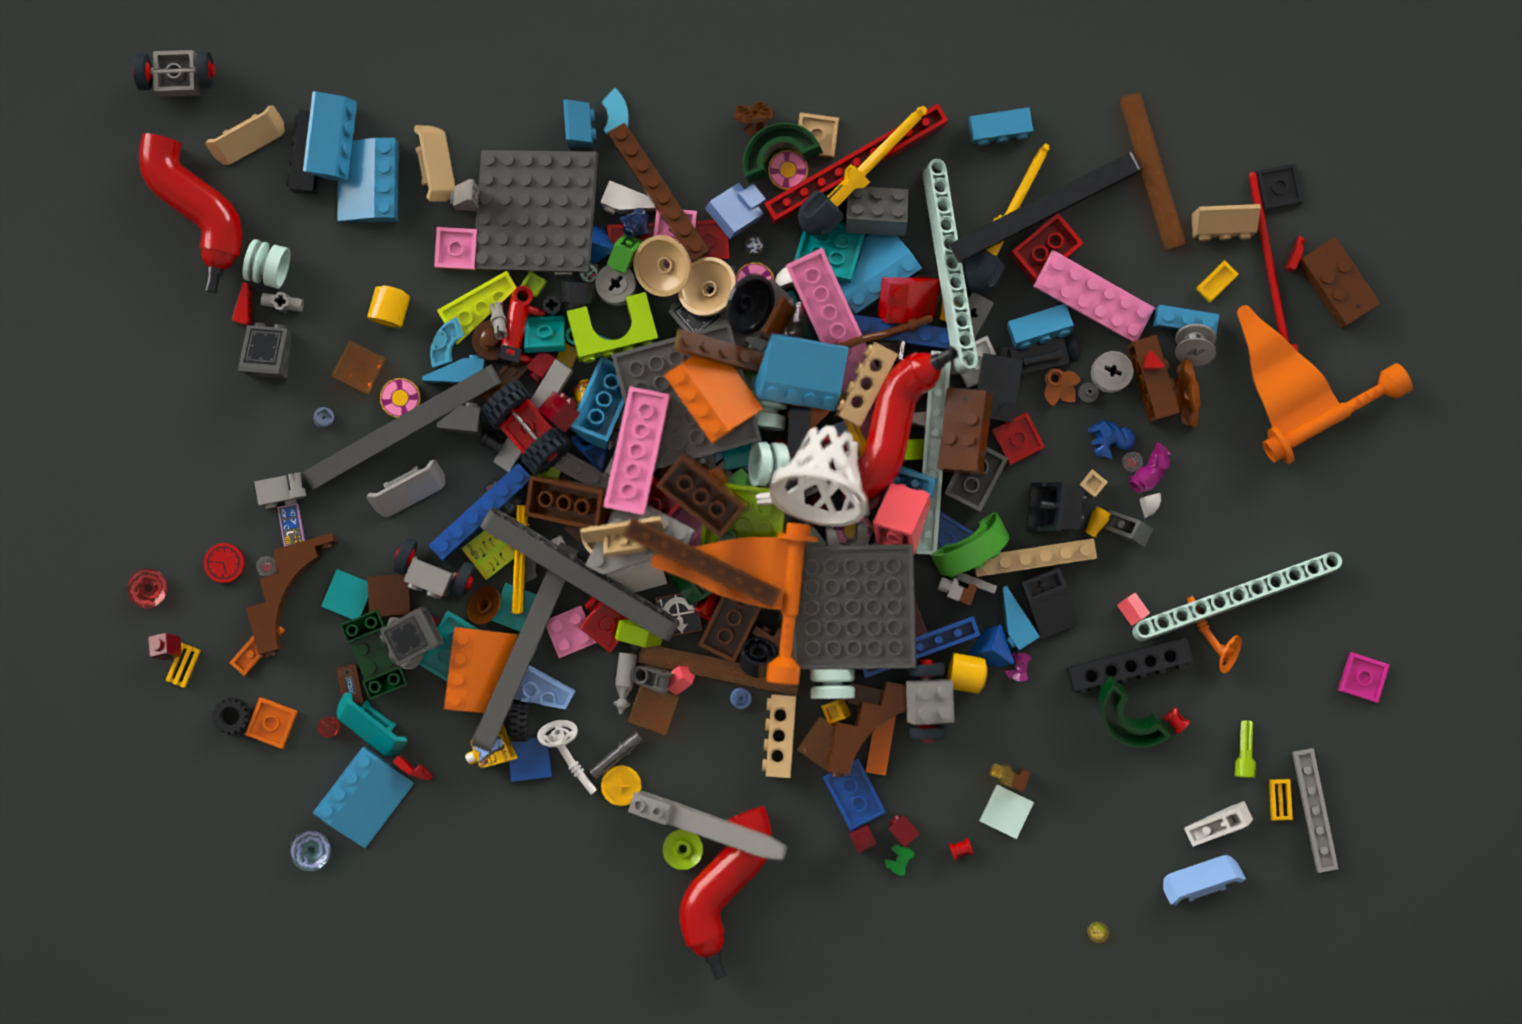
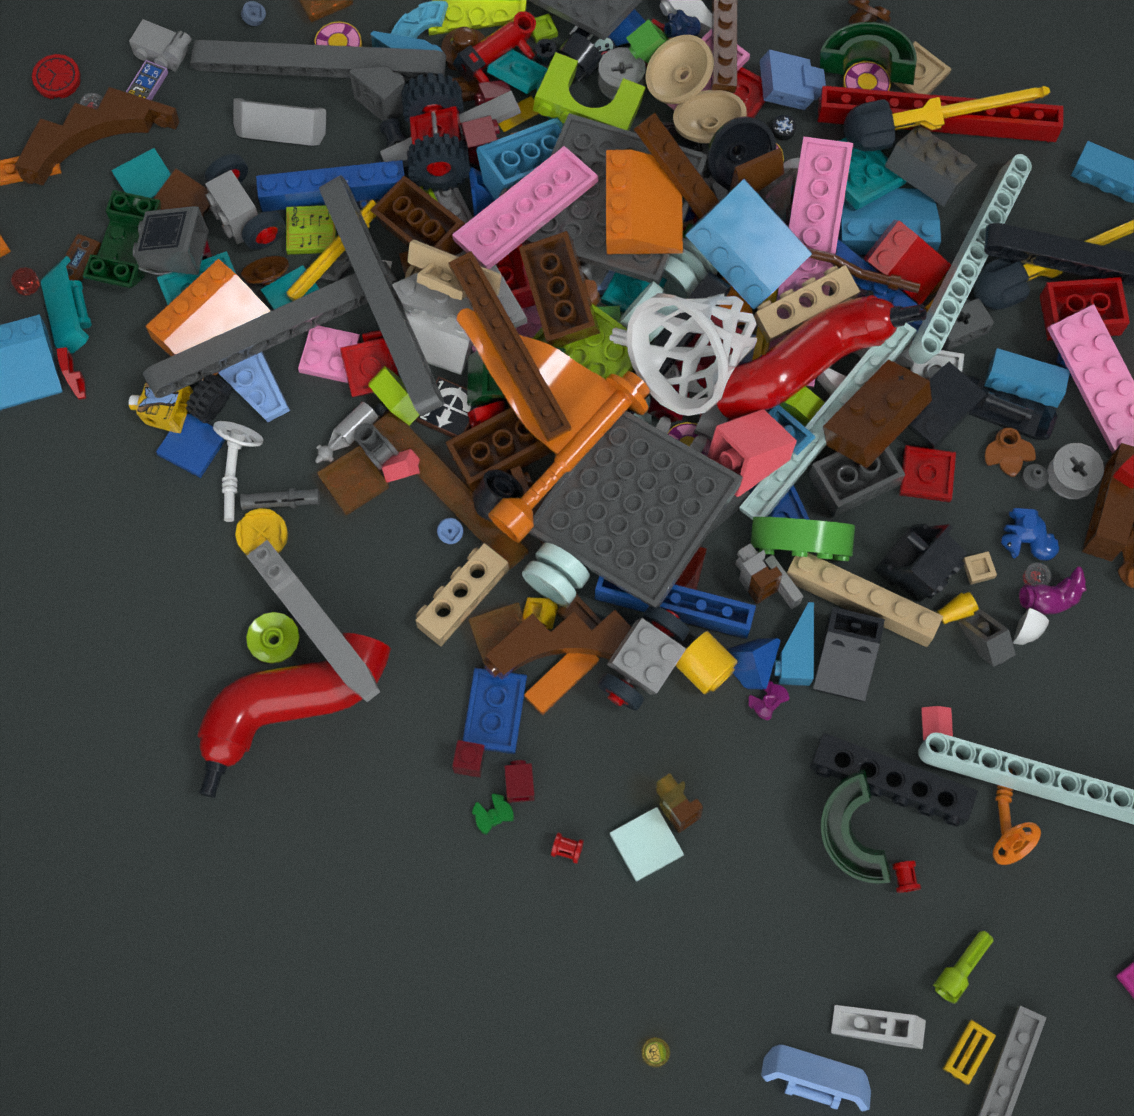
camera: 35 degrees right, 15 degrees down
(498, 320) = (484, 26): light grey pin -> none

